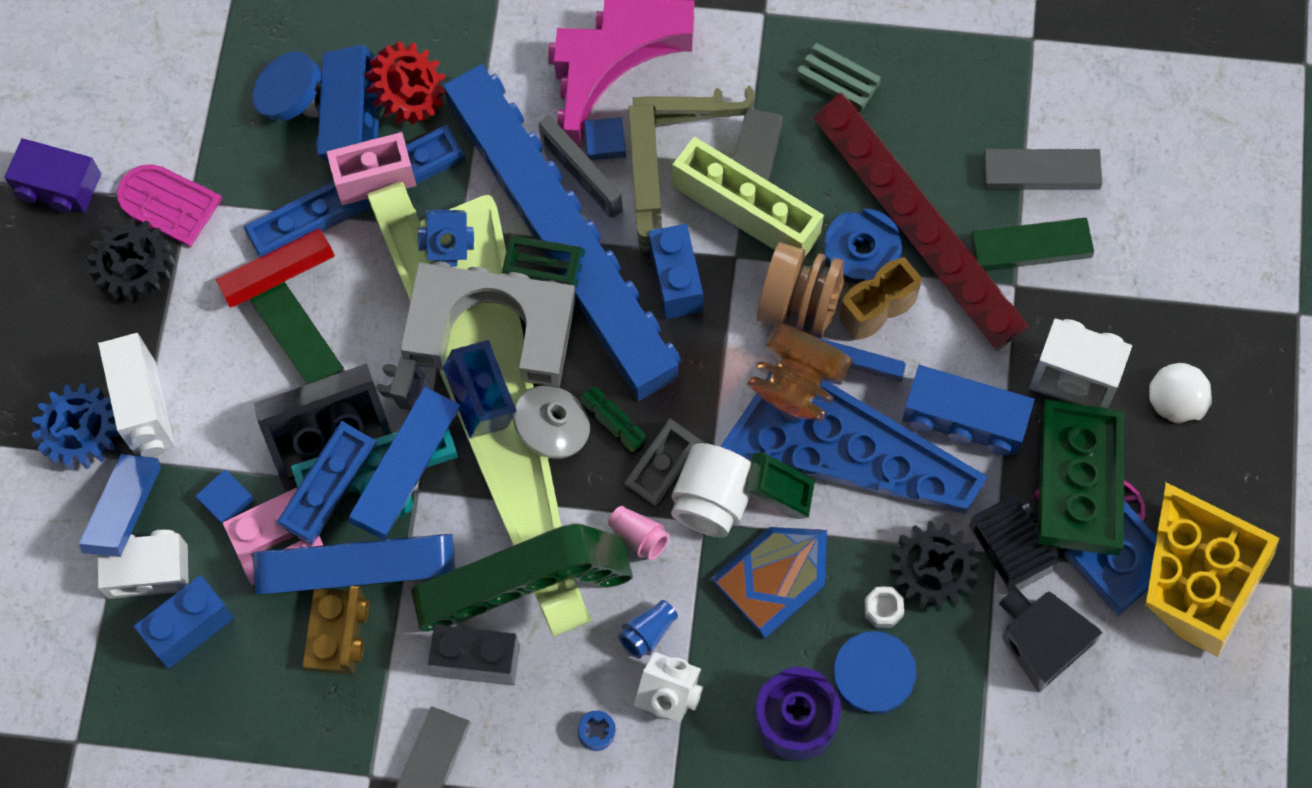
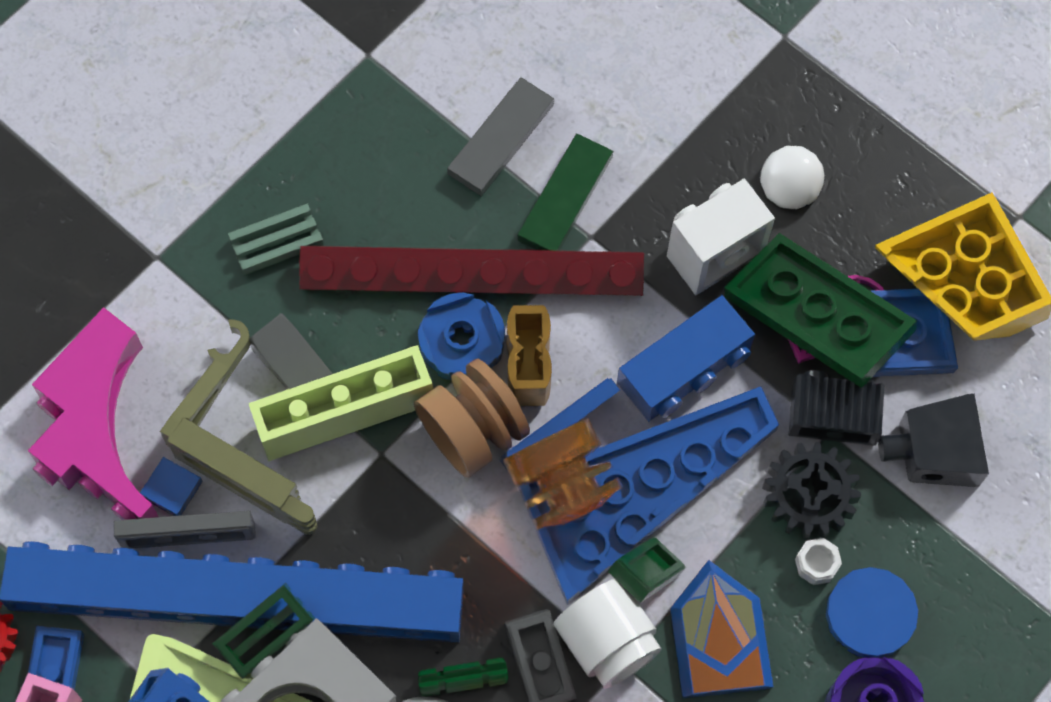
camera: 60 degrees left, 0 degrees up
(676, 271) = (362, 515): blue brick -> none

